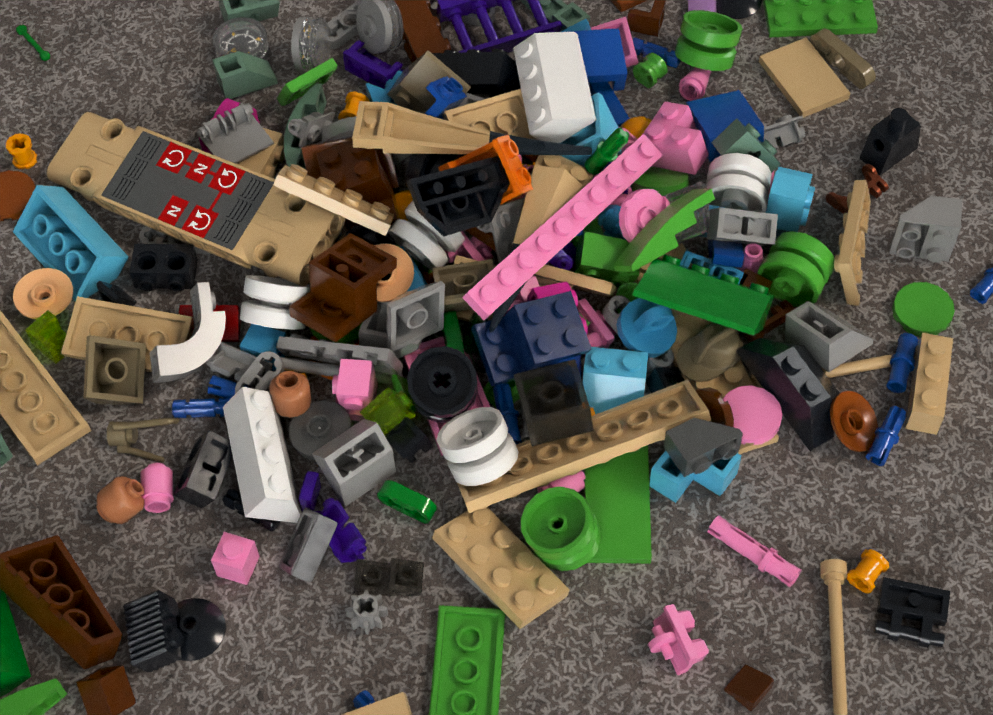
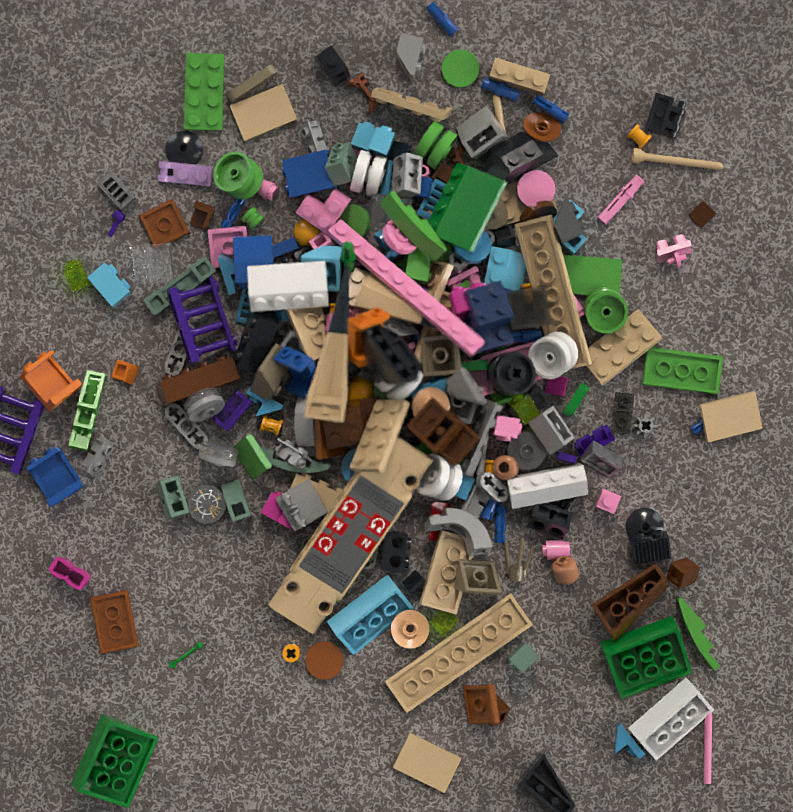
camera: 90 degrees left, 30 degrees up
(430, 476) = (556, 386): none -> dark pink slope

